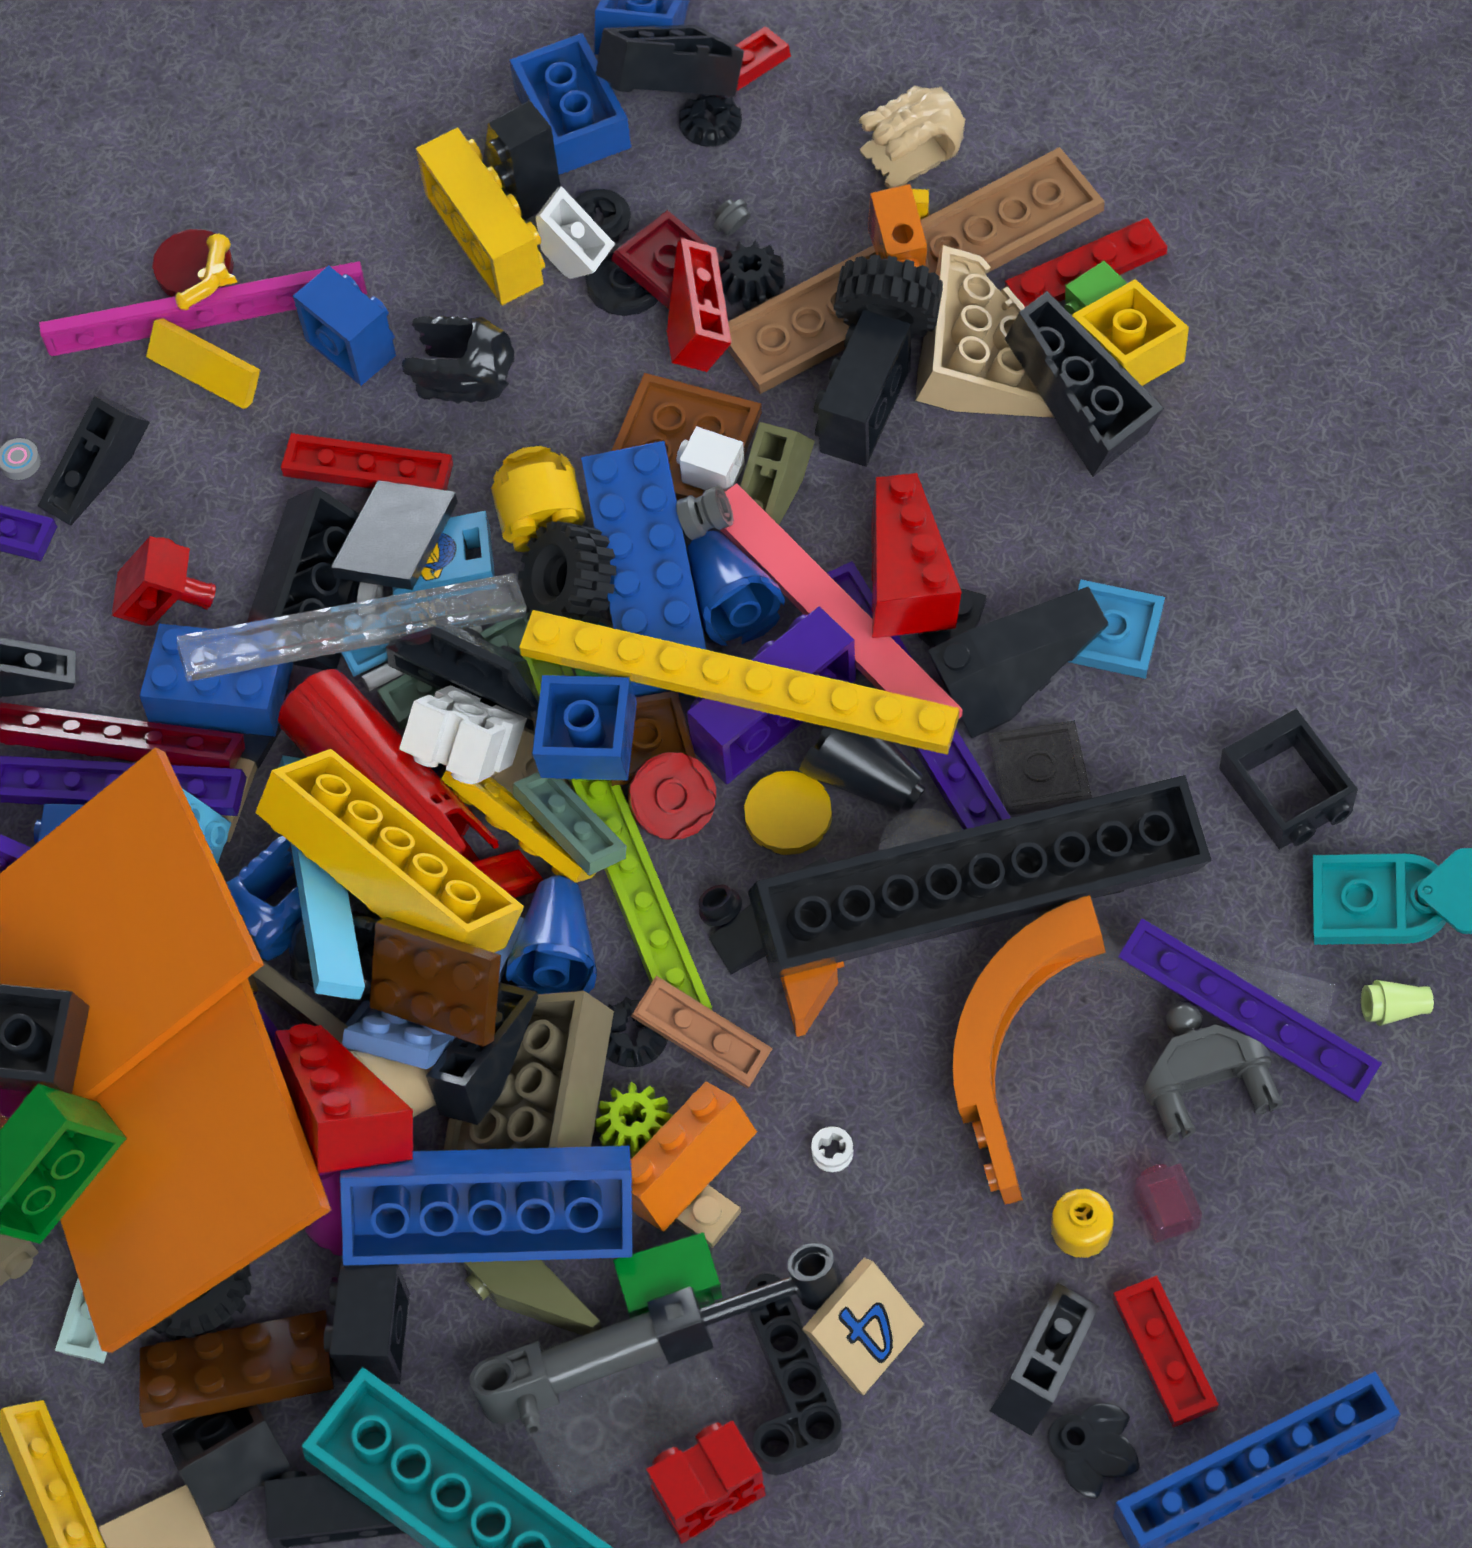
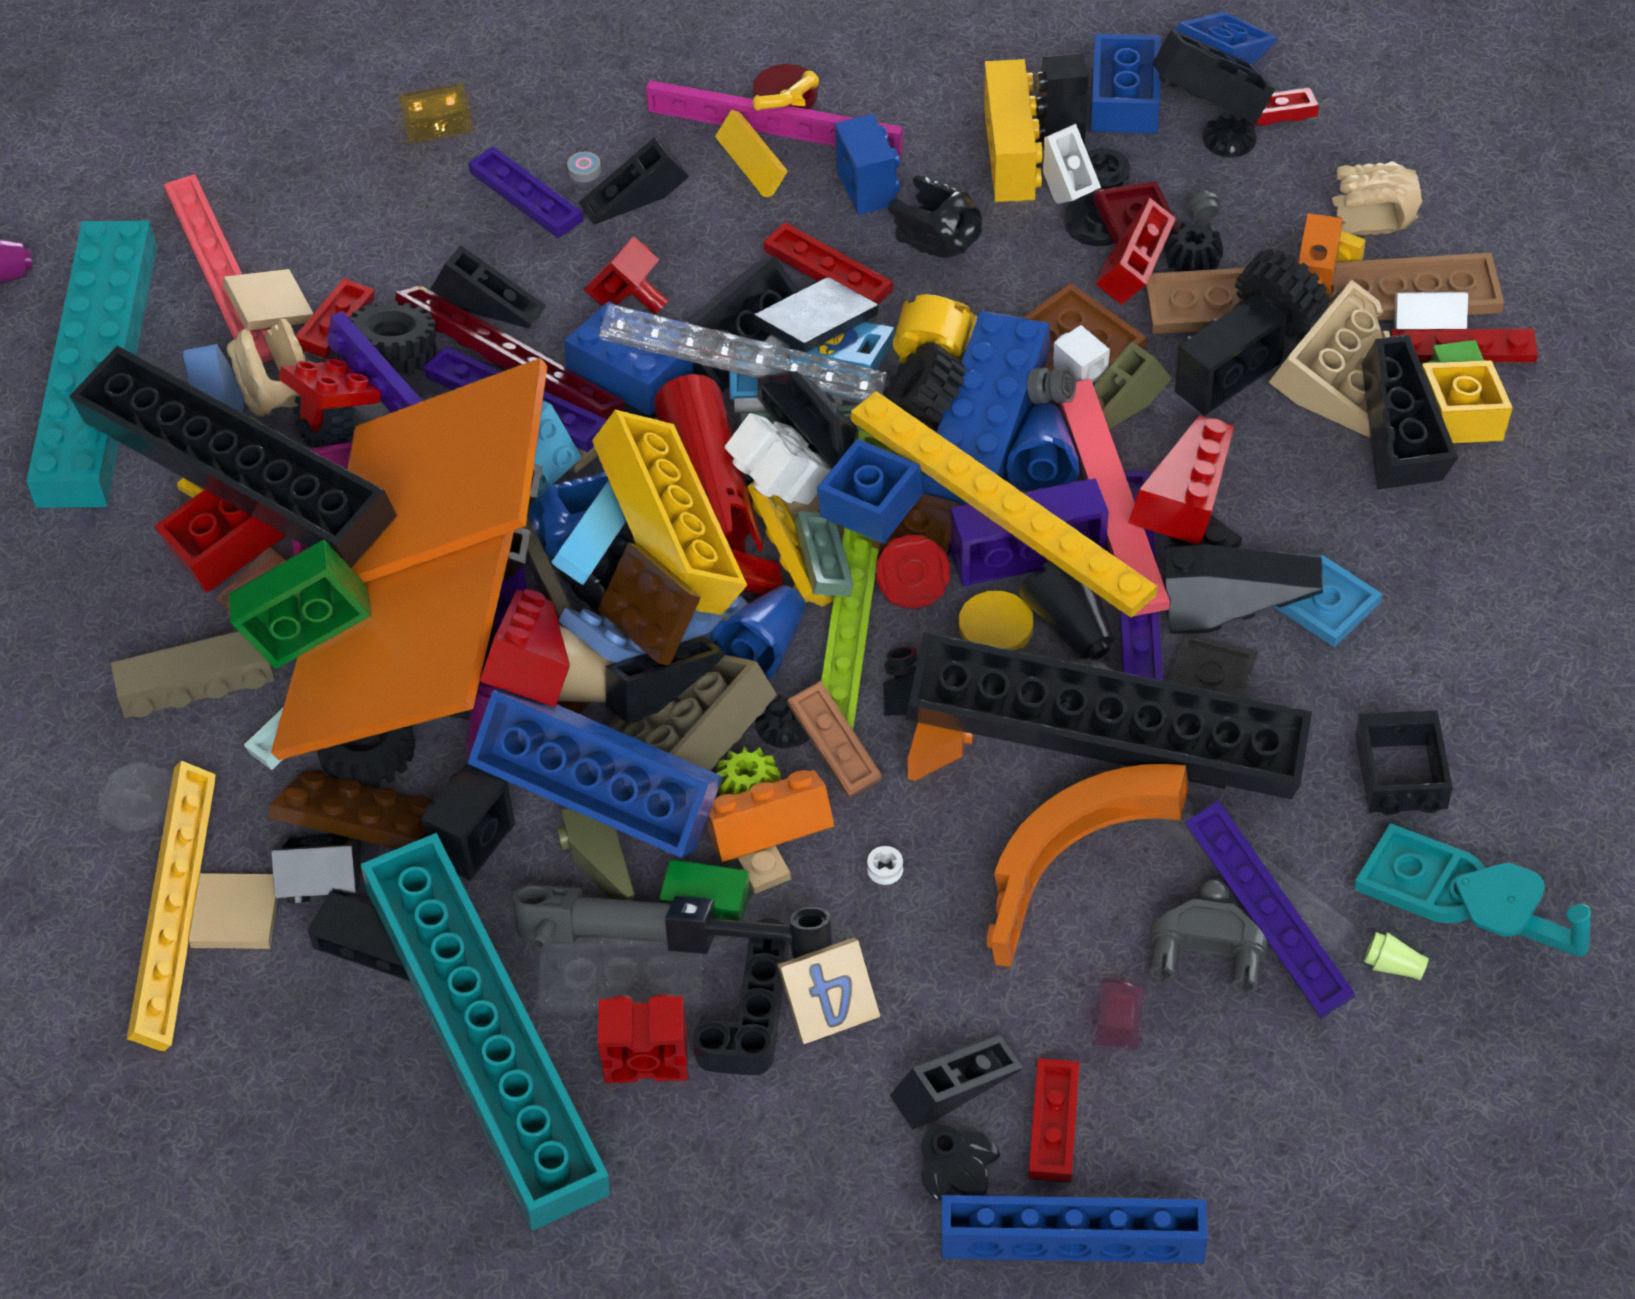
camera: 25 degrees right, 10 degrees down
(1037, 243) = (1431, 310): none -> white tile
(1082, 1223) = (1043, 998): yellow head -> none

